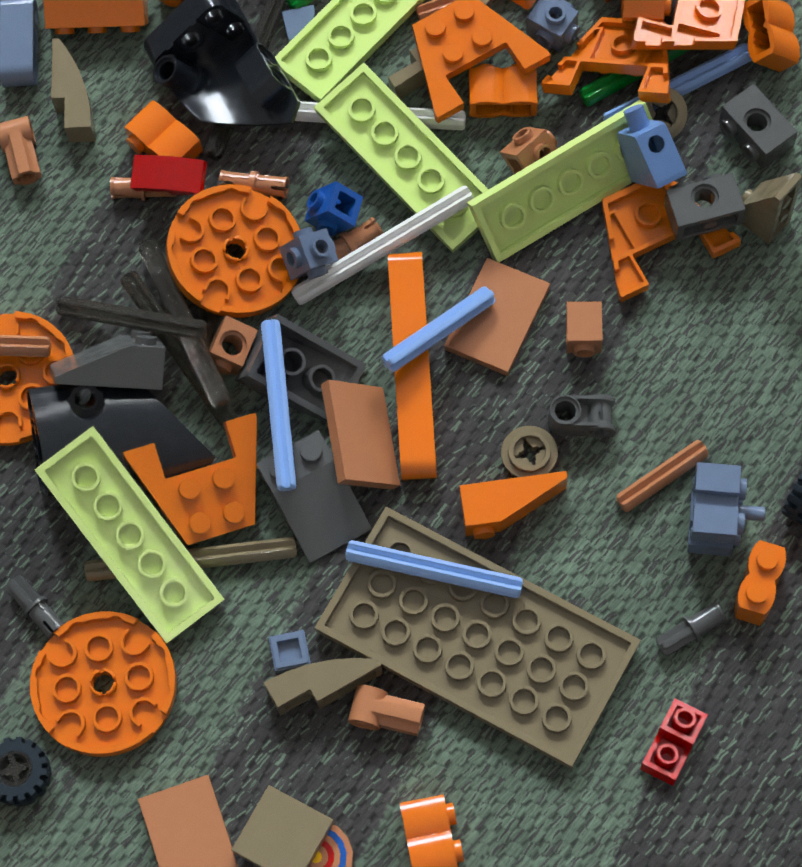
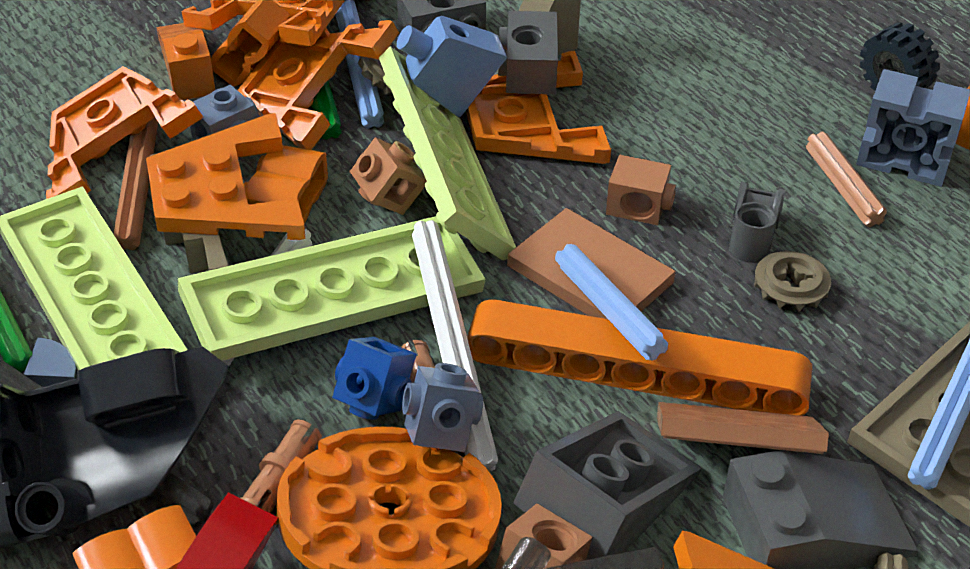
camera: 80 degrees left, 25 degrees down
(278, 405) = (694, 479): light blue axle -> none
(500, 503) = (865, 313): orange slope -> none

